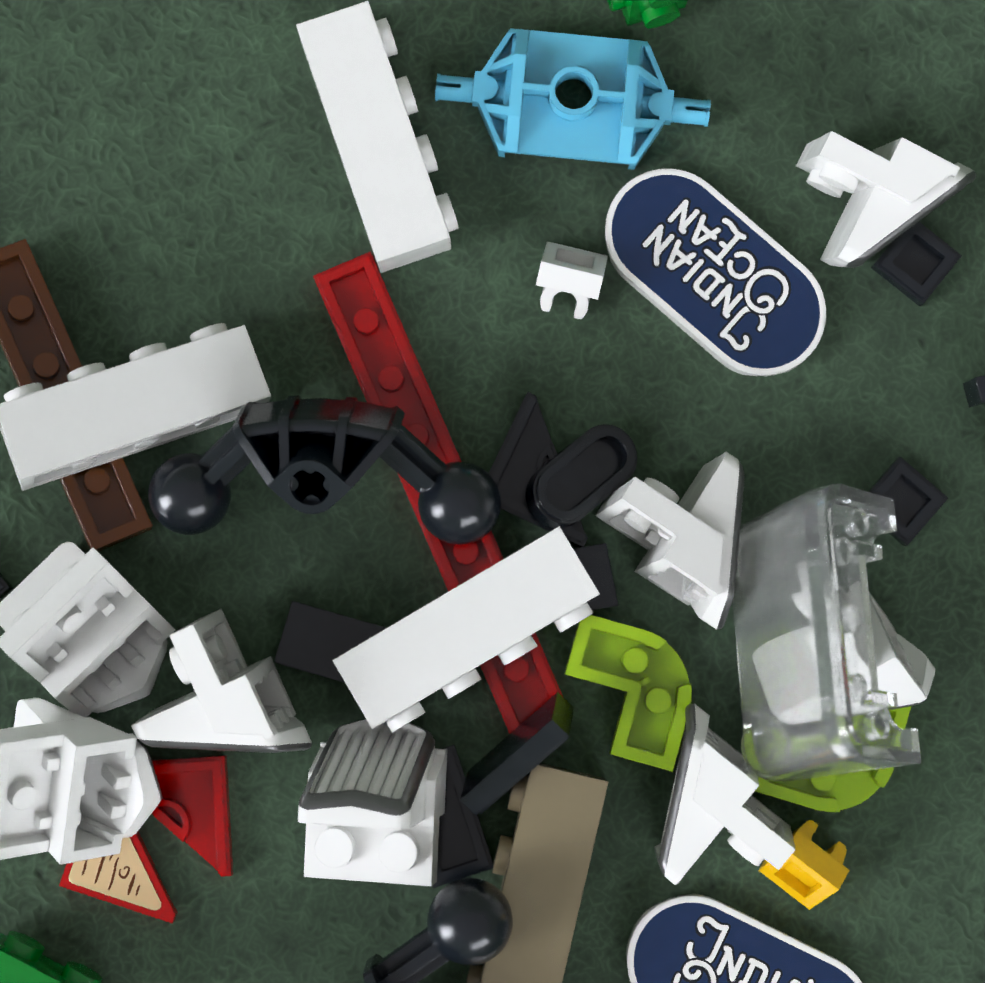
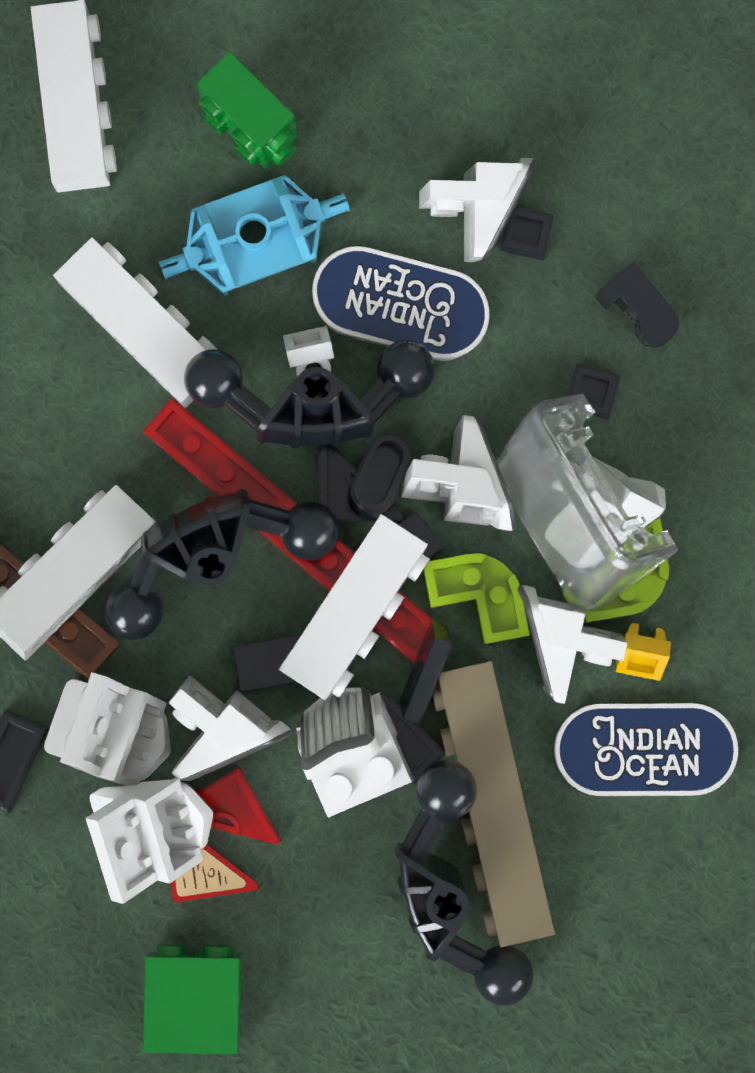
camera: 25 degrees left, 0 degrees up
(546, 346) = (317, 403): none -> black piece

